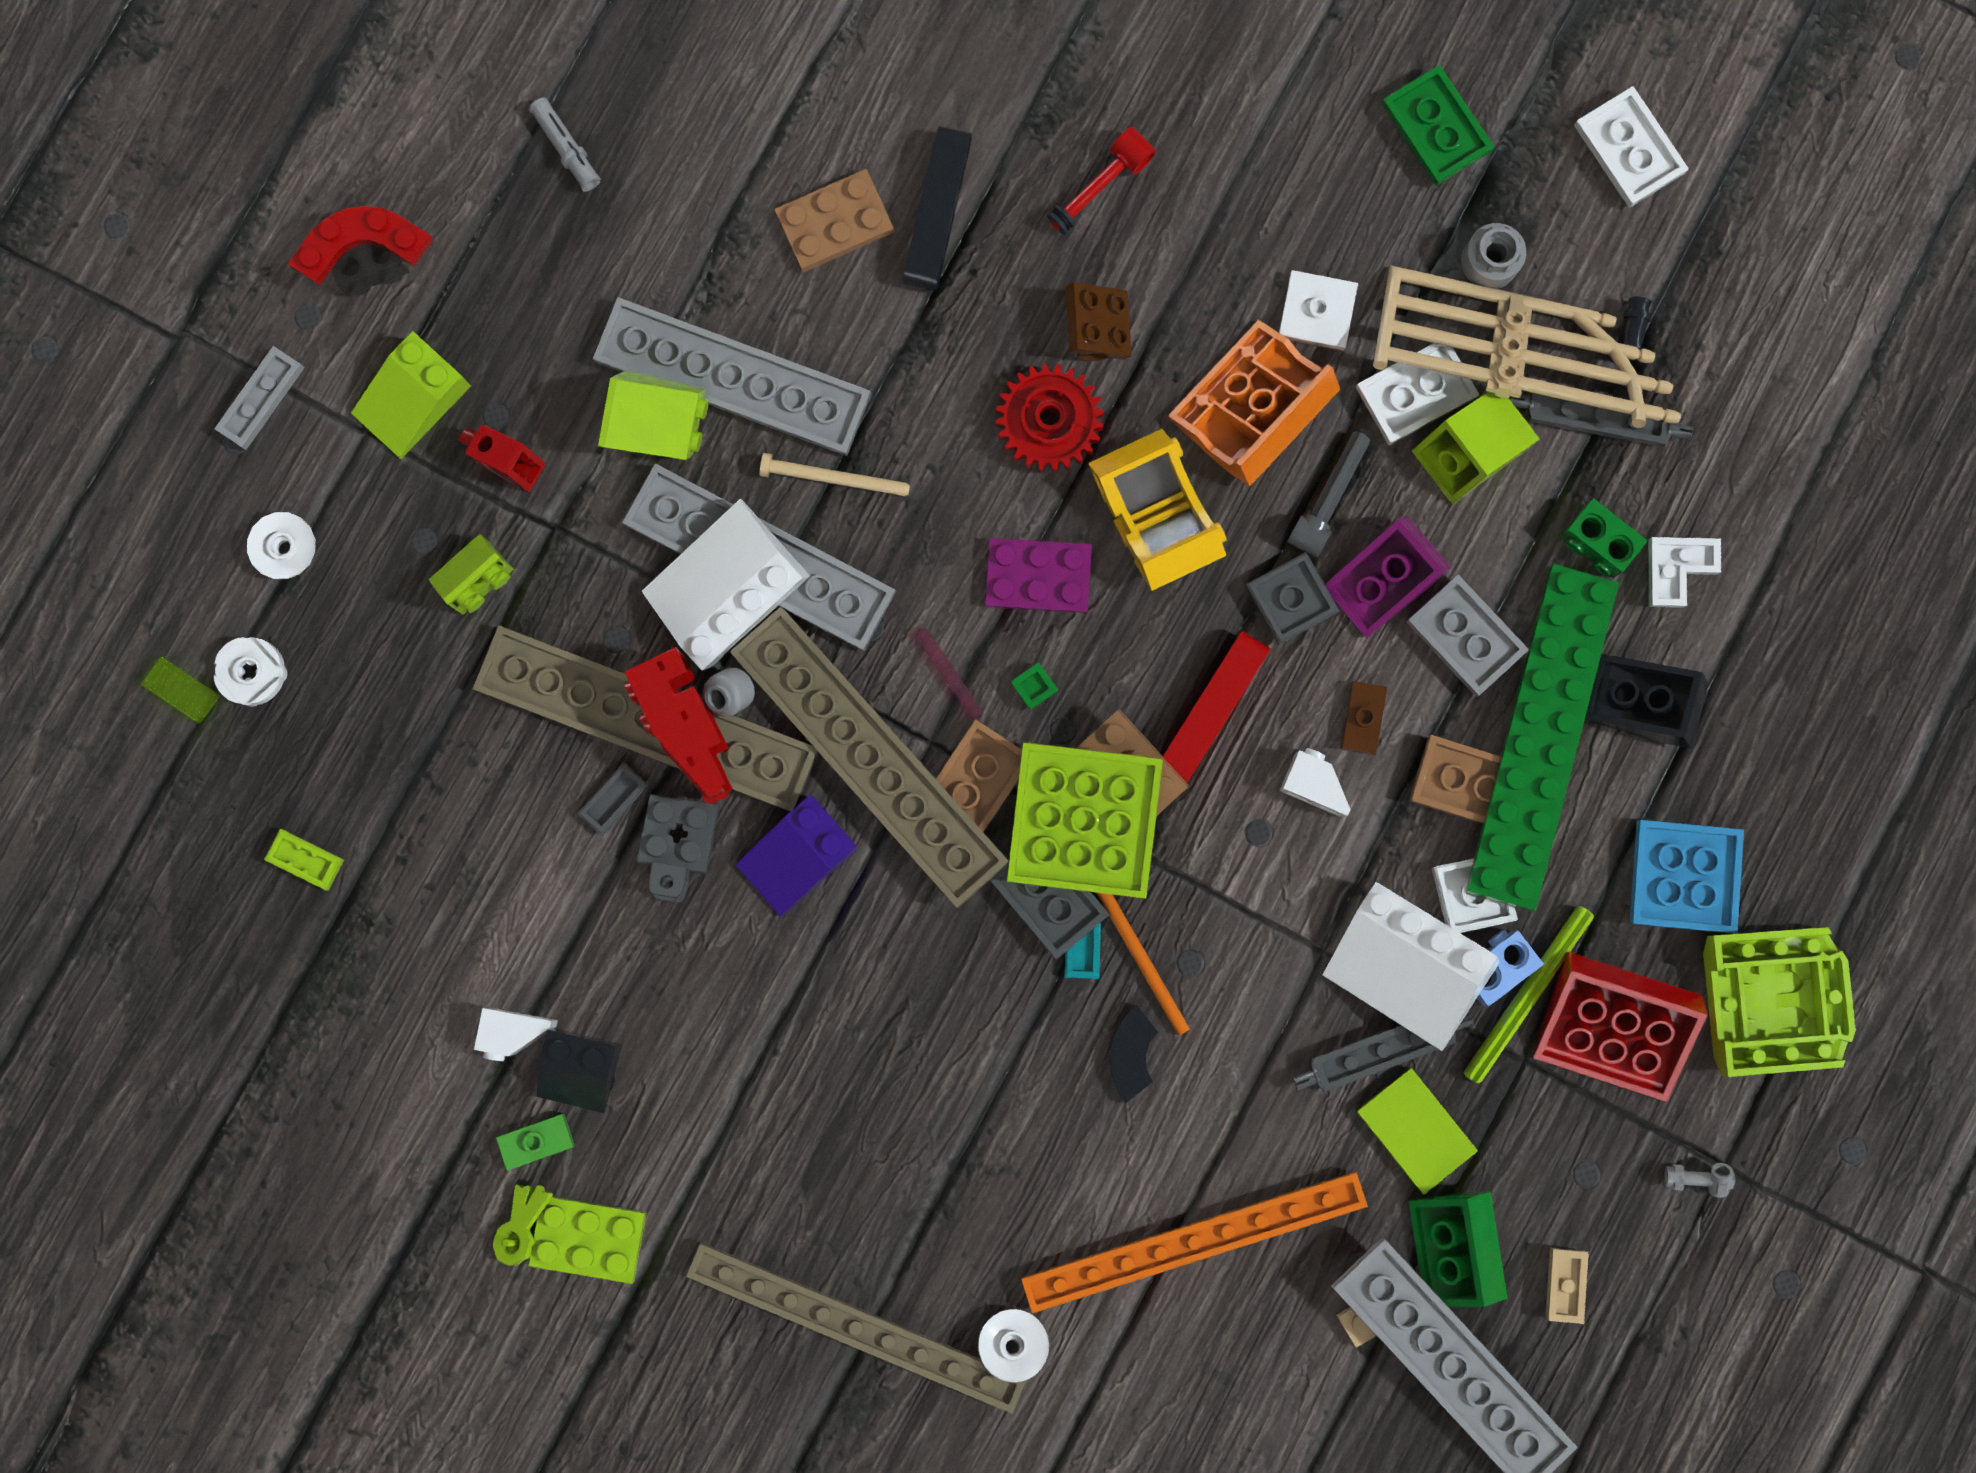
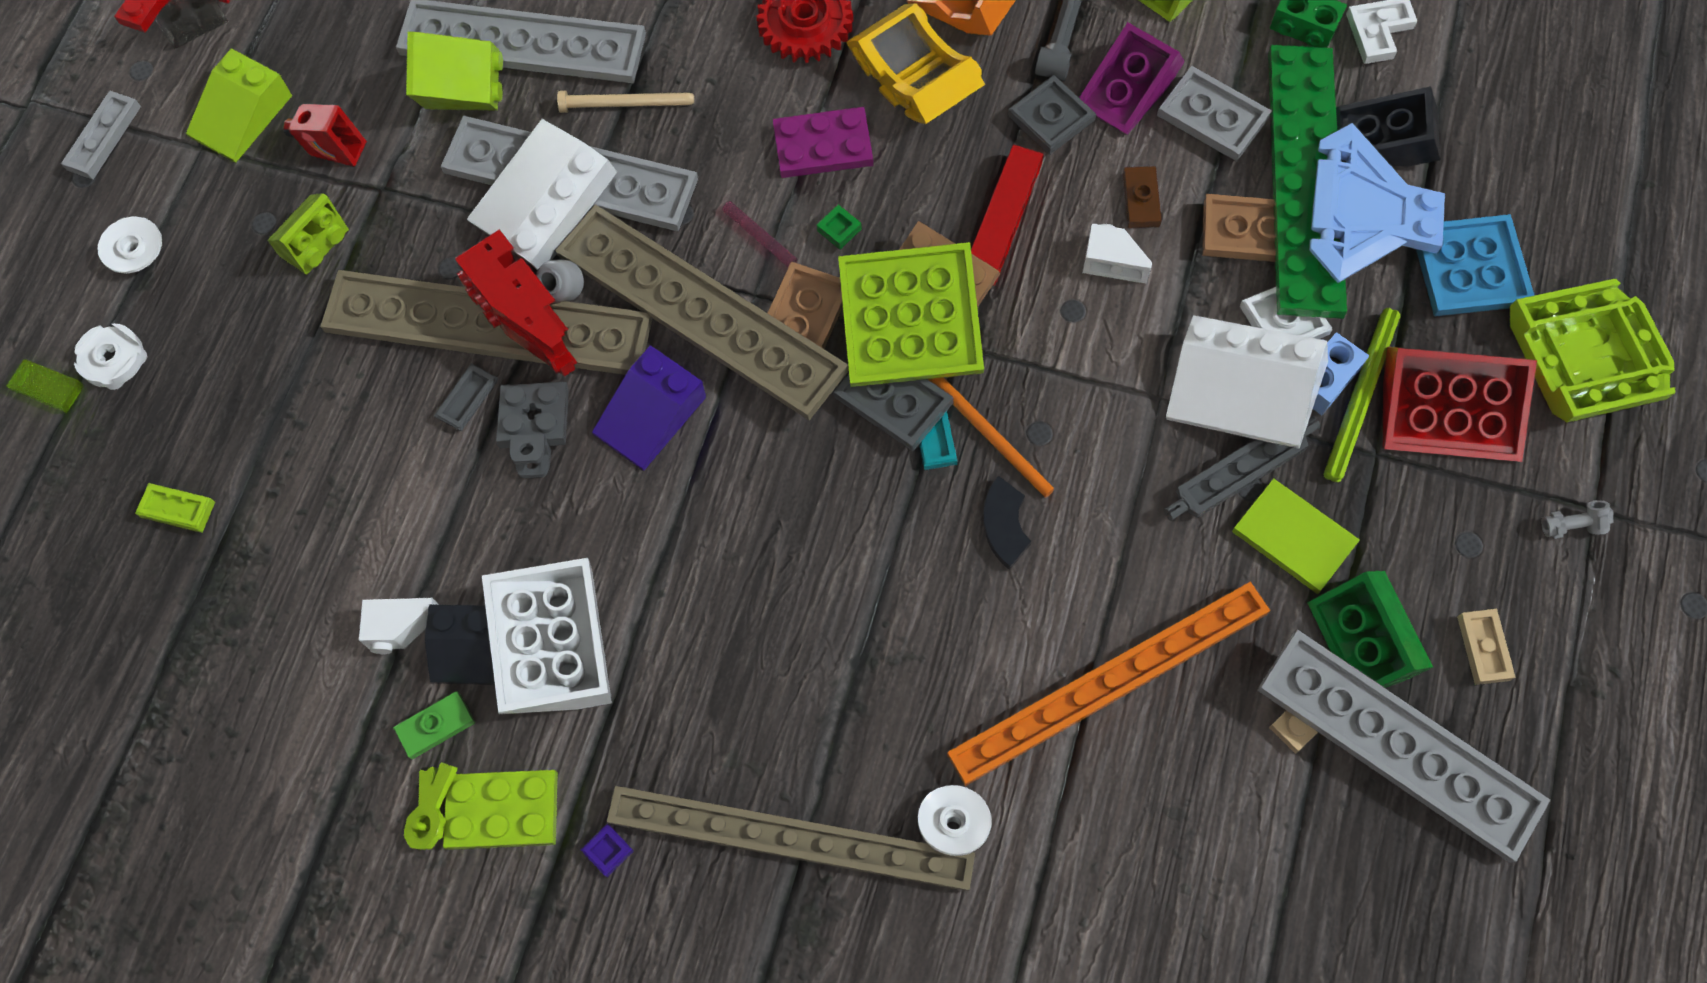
camera: 10 degrees left, 15 degrees down
(656, 1088) = (546, 638): none -> white slope
(682, 1299) = (607, 850): none -> dark purple tile
(1593, 795) = (1367, 207): none -> light blue plate

